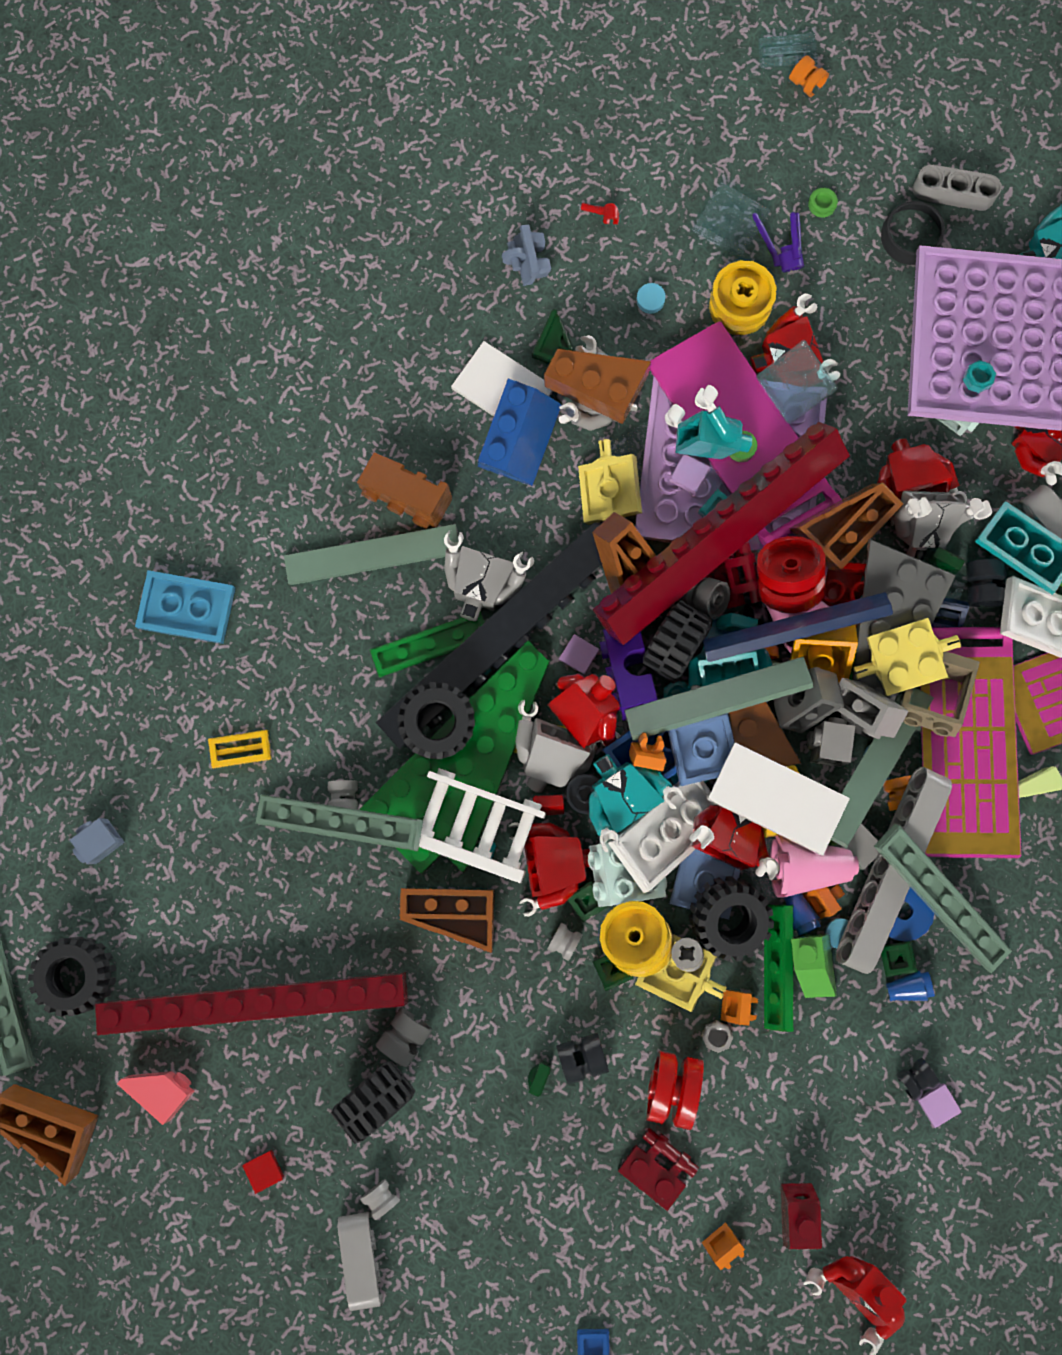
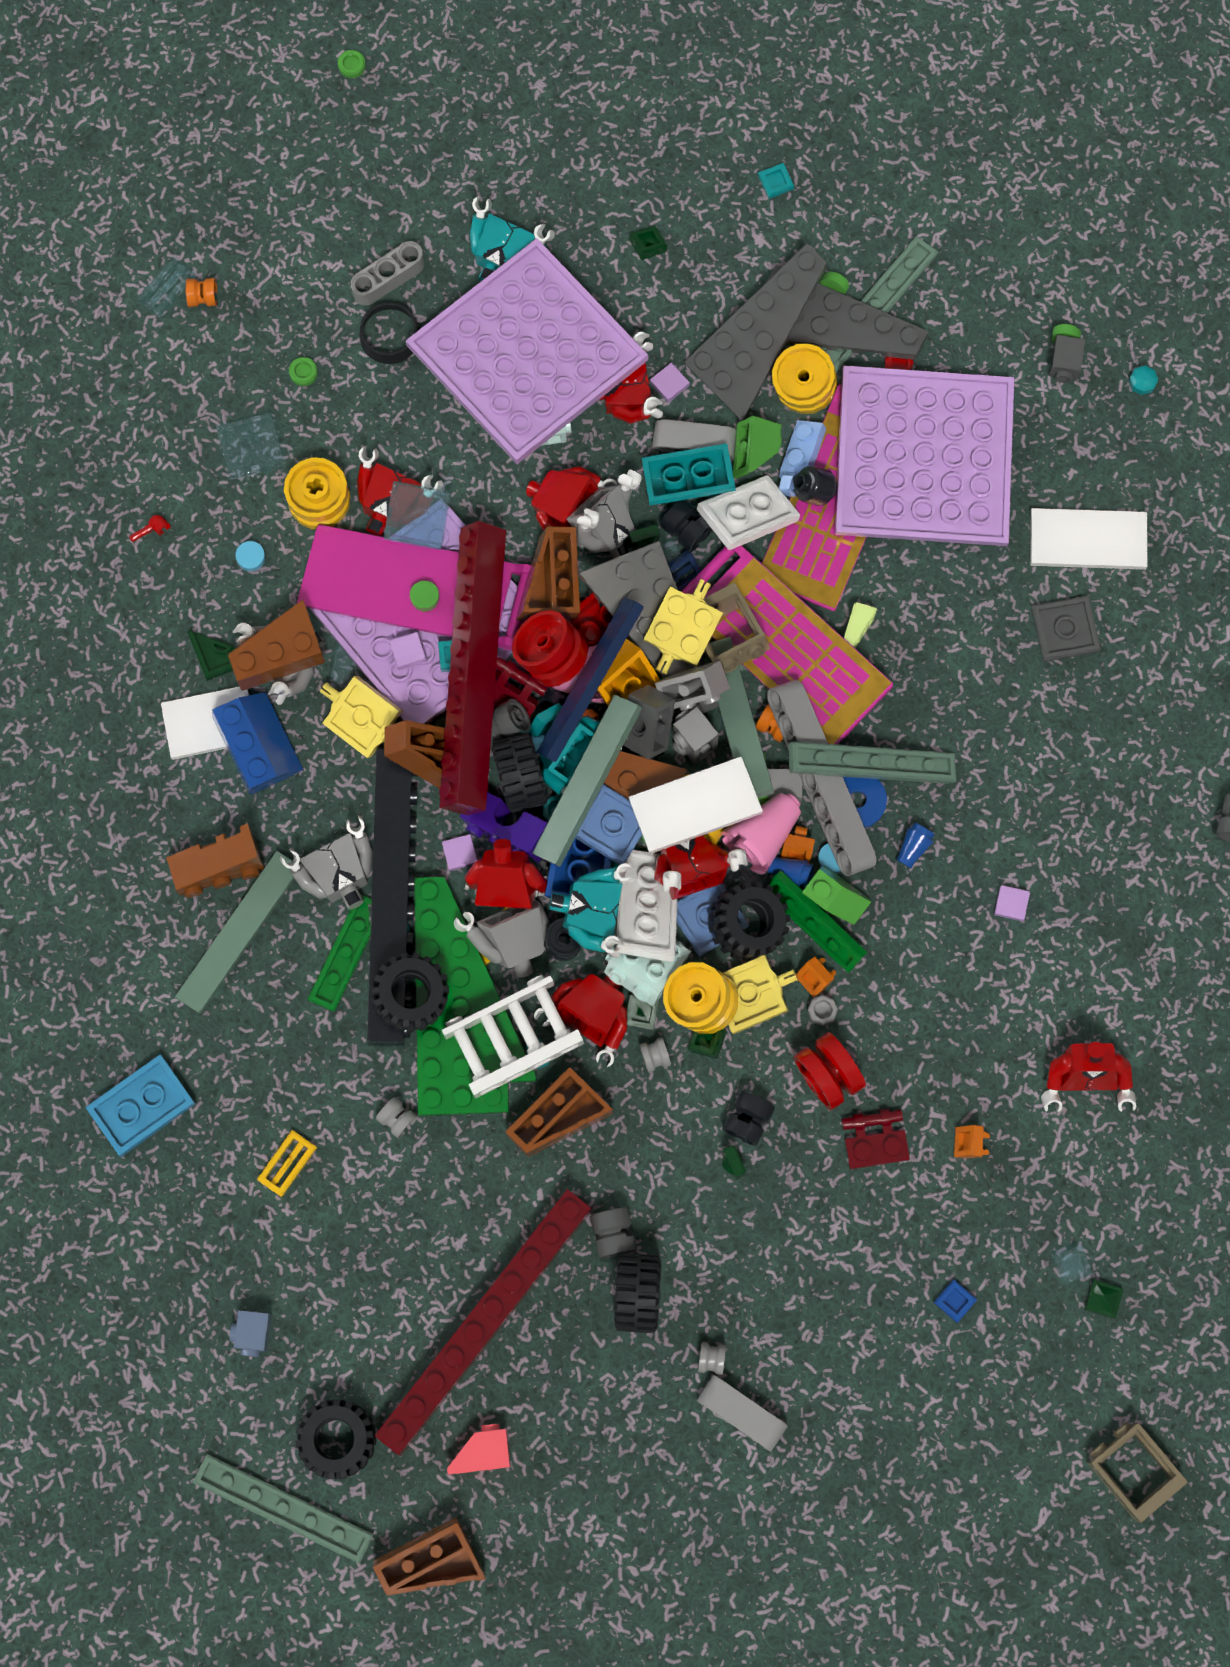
camera: 55 degrees left, 5 degrees down
(263, 1171) = (613, 1429): red tile -> none
(339, 822) = (413, 1134): sand green tile -> none
(523, 257) = (127, 614): sand blue hips -> none
(550, 804) = (549, 968): red tile -> none
(648, 755) = (579, 866): orange tile -> none
(691, 959) = (749, 978): light grey wheel -> none
(707, 432) = (393, 610): teal torso -> none
(791, 255) = (320, 430): dark purple plant -> none
(800, 1217) = (998, 1069): dark red torso -> none
(899, 958) = (887, 834): dark green tile -> none
(918, 1079) = (980, 898): black wheel -> none
(979, 376) = (538, 392): teal tile -> none

